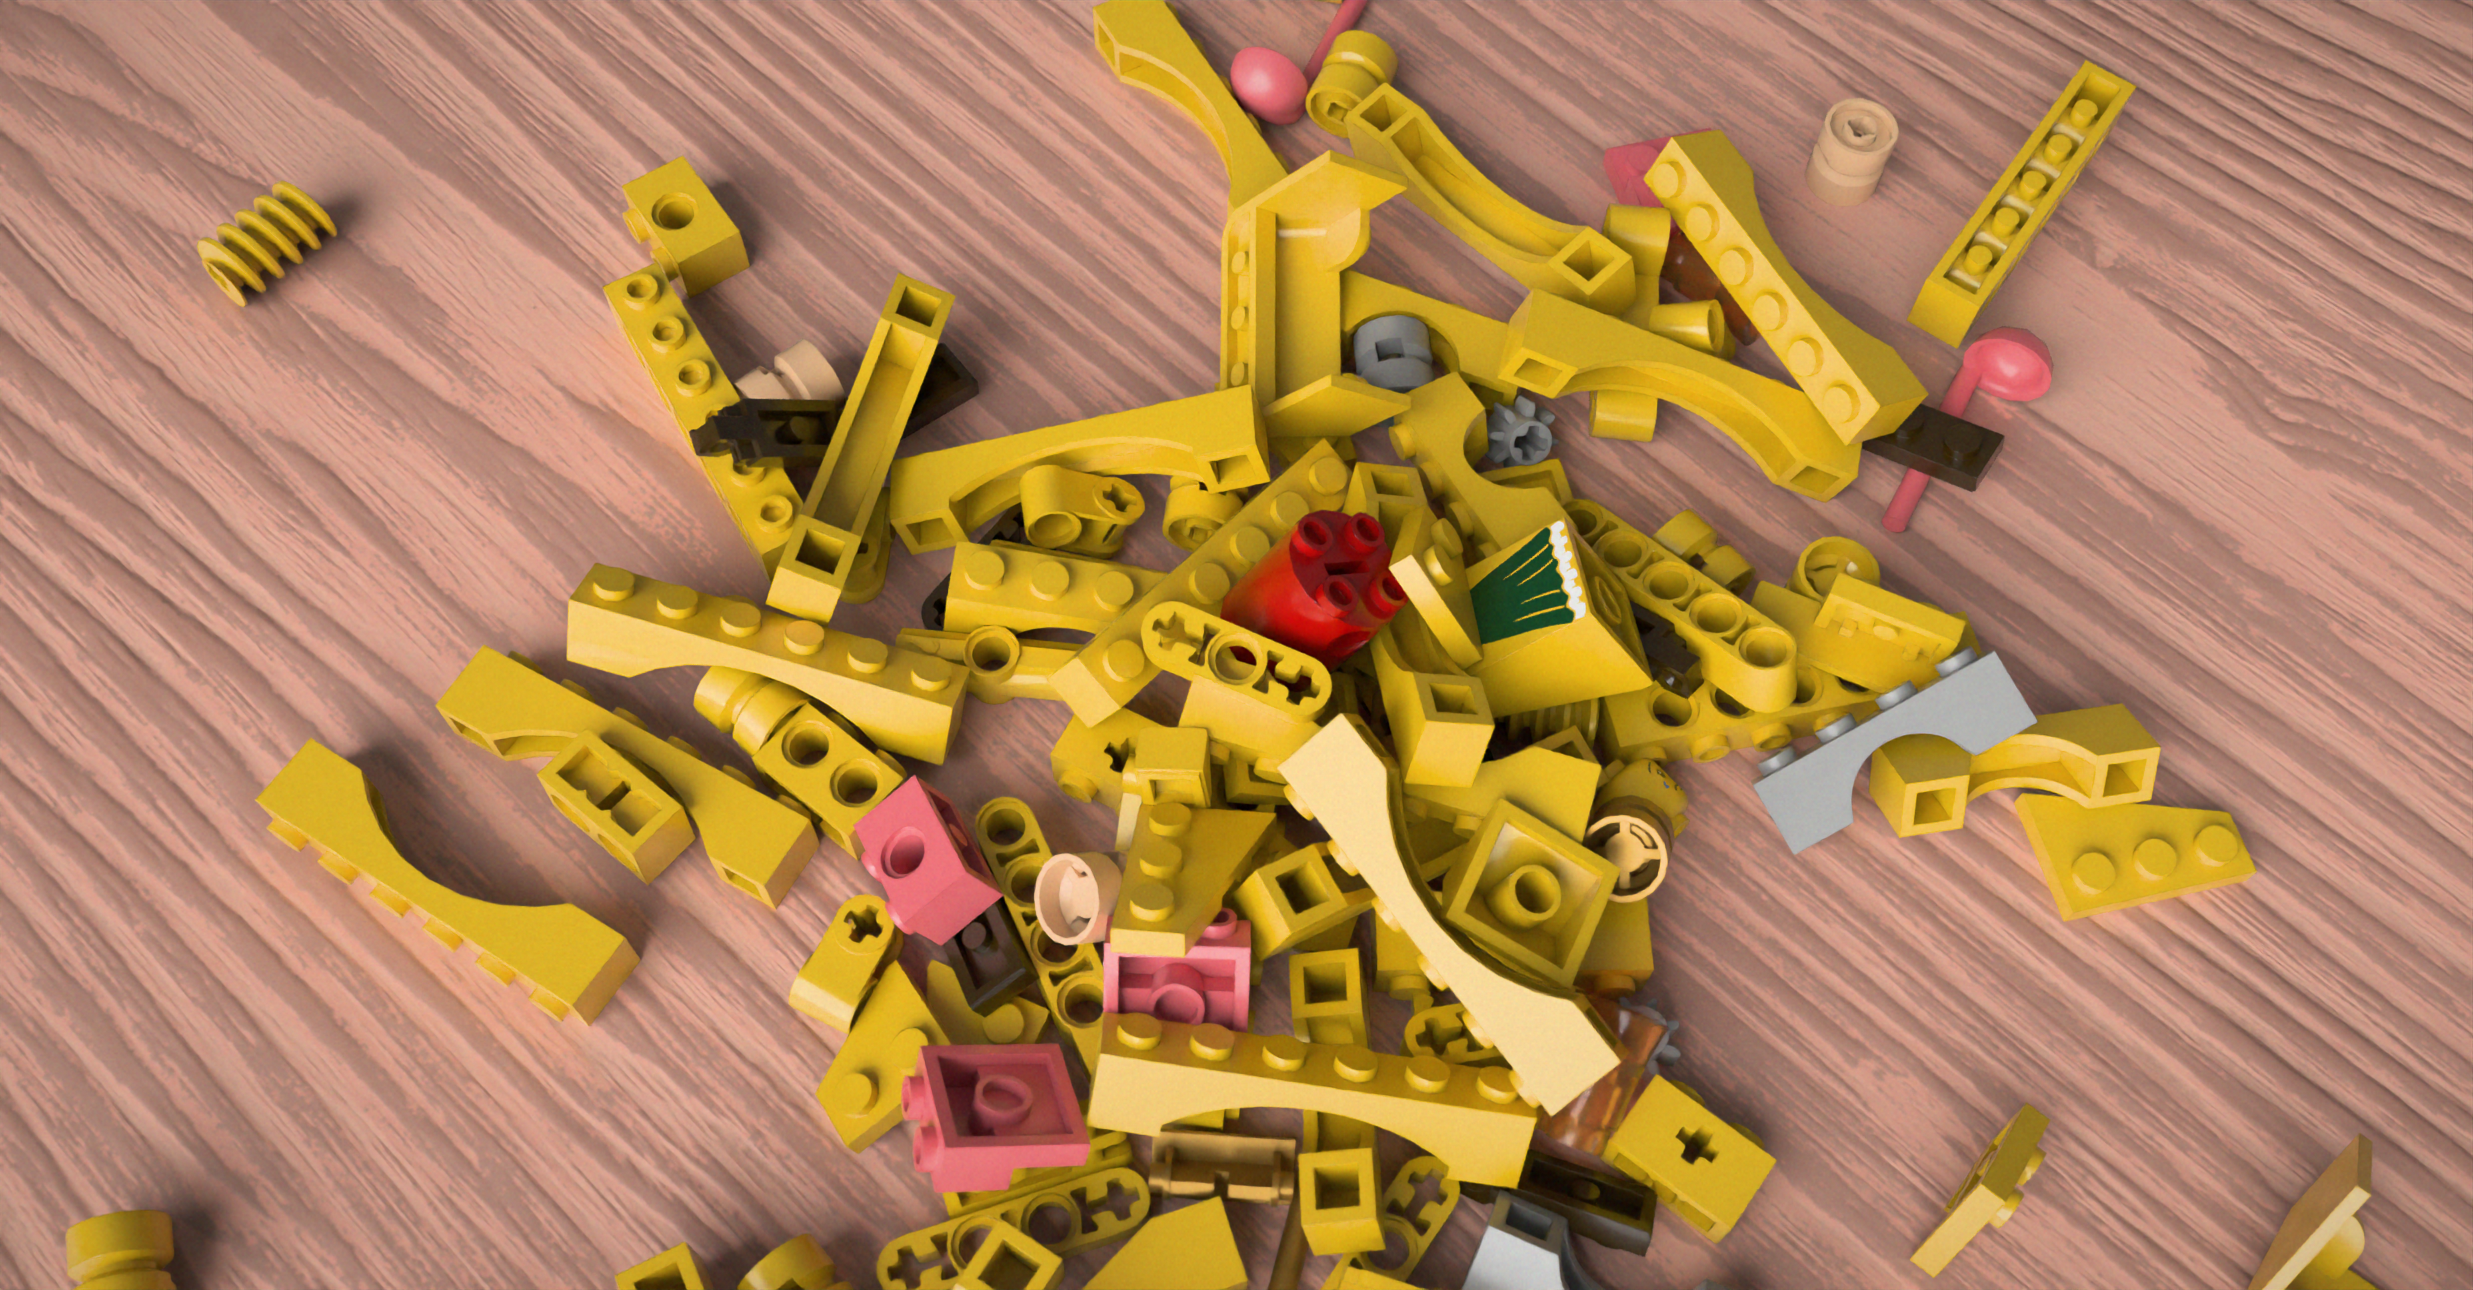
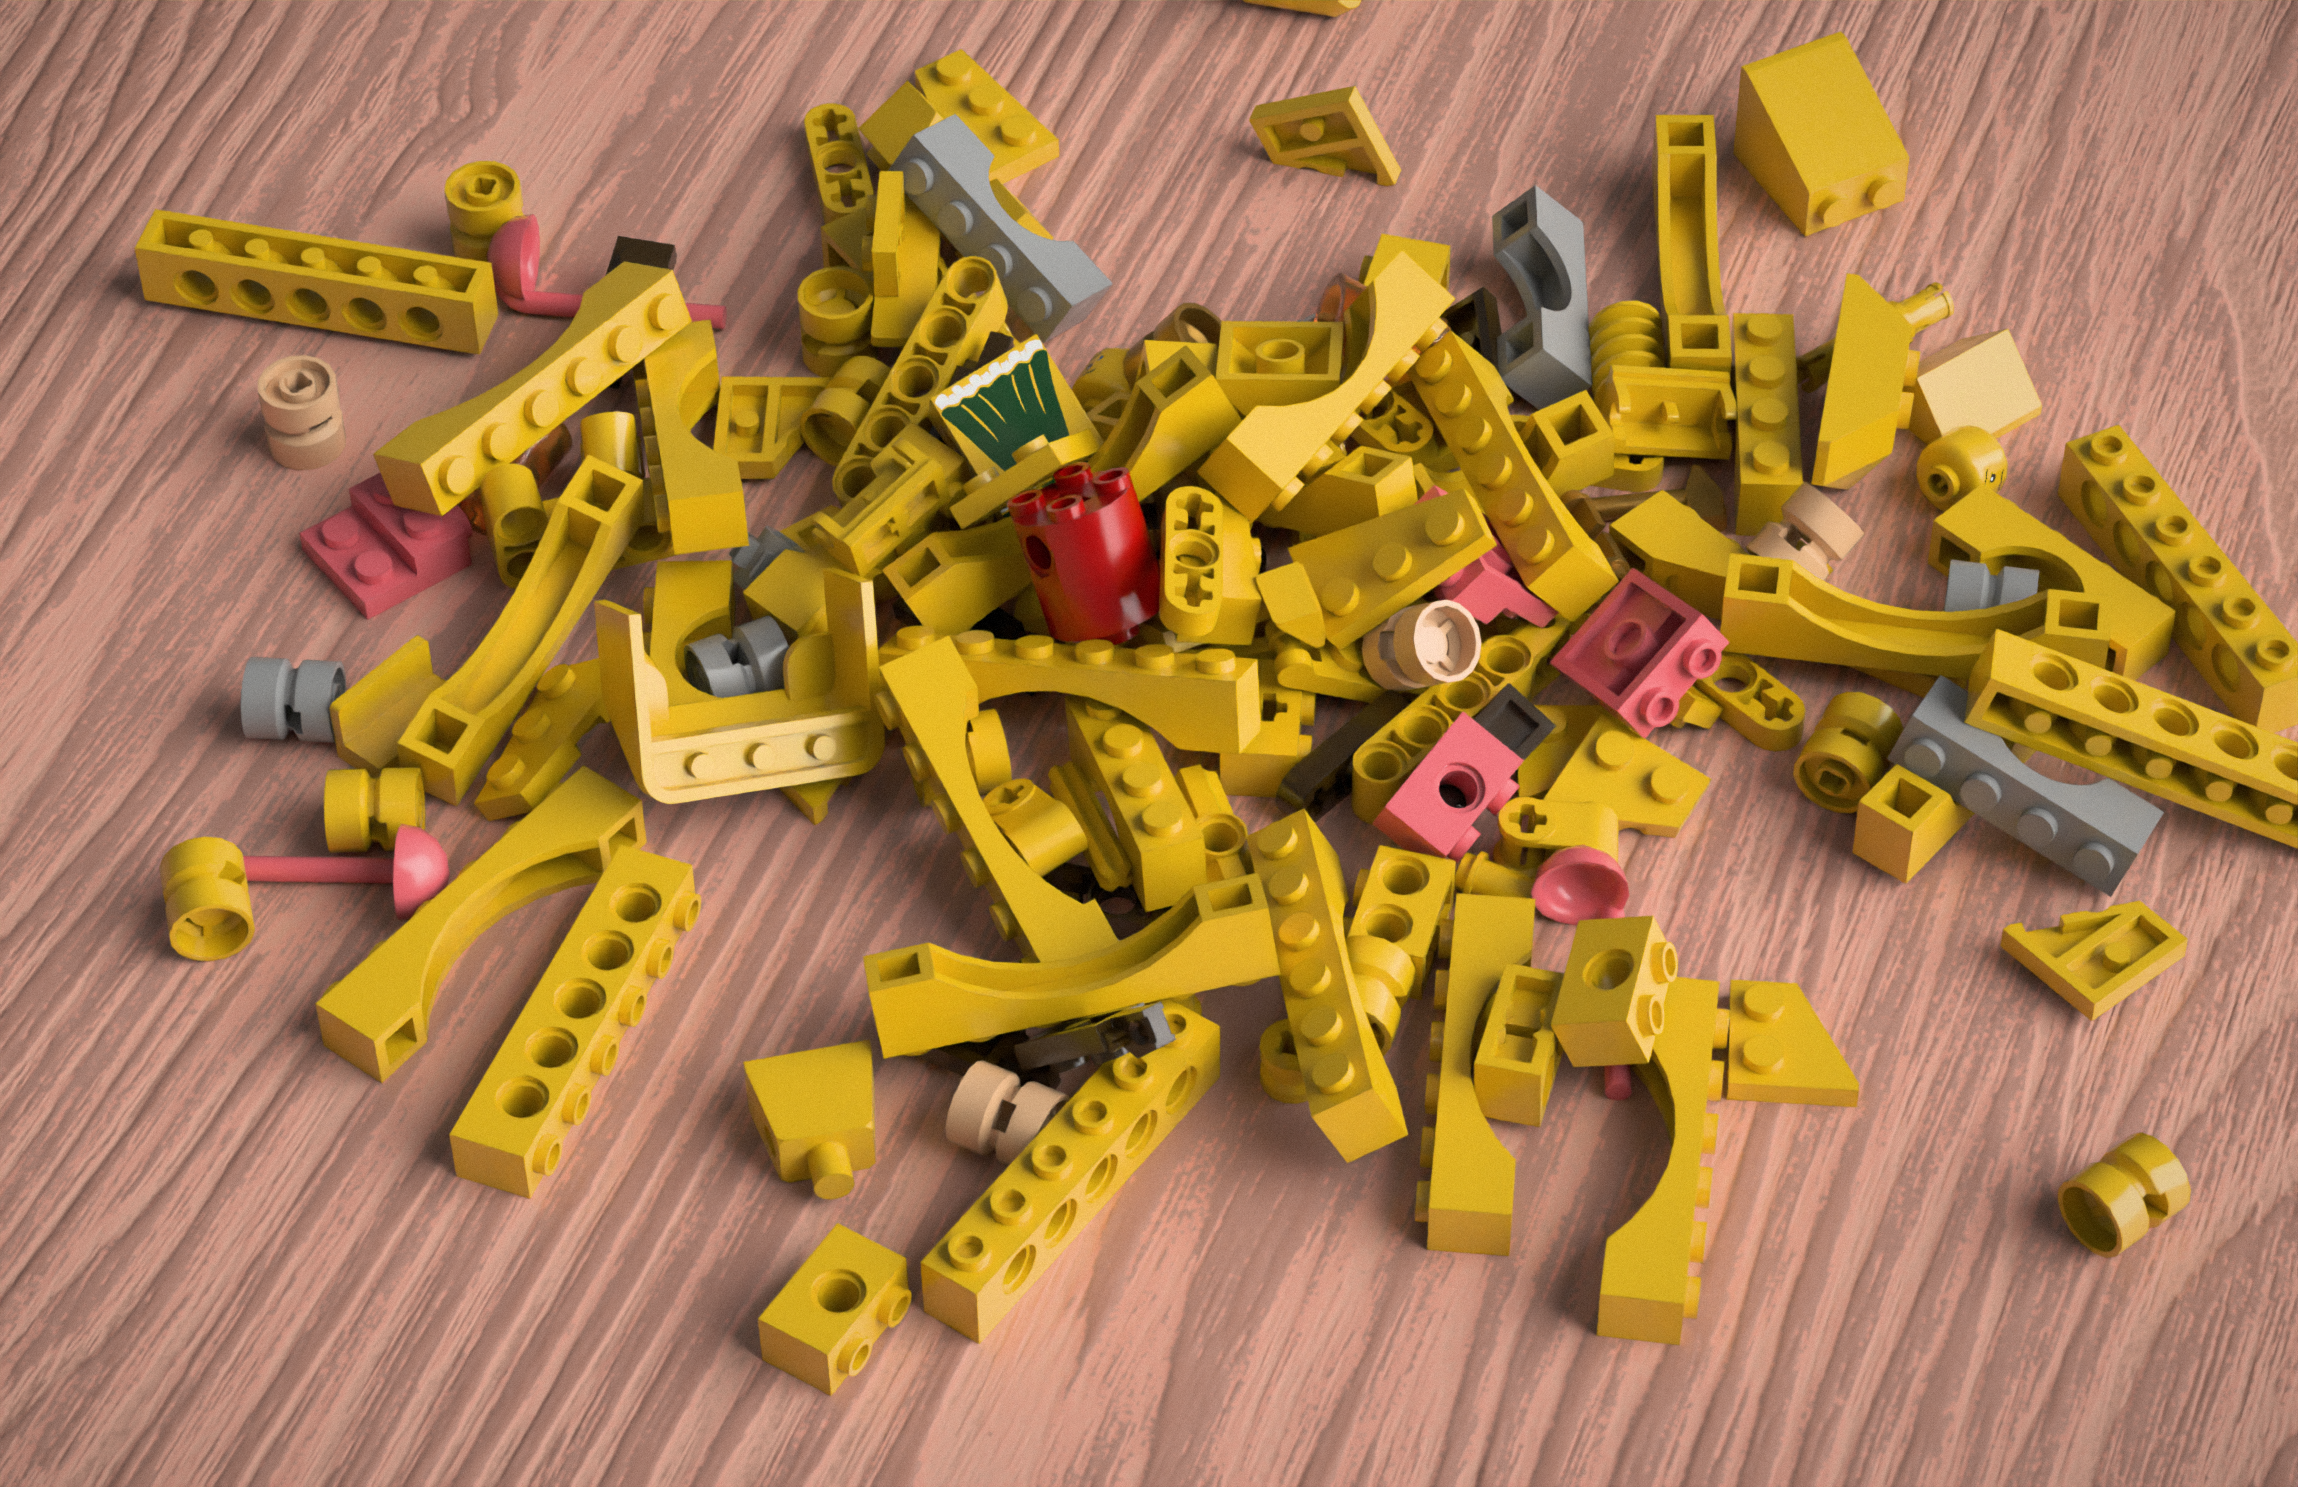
camera: 110 degrees left, 15 degrees down
(513, 1061) = (1783, 1049): none -> yellow wing
(591, 883) = (1614, 991): none -> yellow brick
(768, 962) = (1585, 886): none -> coral piece
(839, 885) = (1484, 877): none -> yellow pin
(865, 264) = (816, 1114): none -> yellow torso
(1044, 797) = (1326, 773): none -> dark brown beam
(1070, 157) = (575, 1022): none -> yellow brick
(1415, 247) = (545, 740): none -> yellow wing
(1470, 468) = (884, 510): none -> yellow hinge
(1473, 125) = (381, 706): none -> yellow panel
(1502, 65) = (290, 698): none -> light grey wheel
(1724, 490) = (761, 420): none -> yellow wing
(2087, 351) = (478, 202): none -> yellow wheel
(2116, 682) = (846, 150): none -> yellow beam

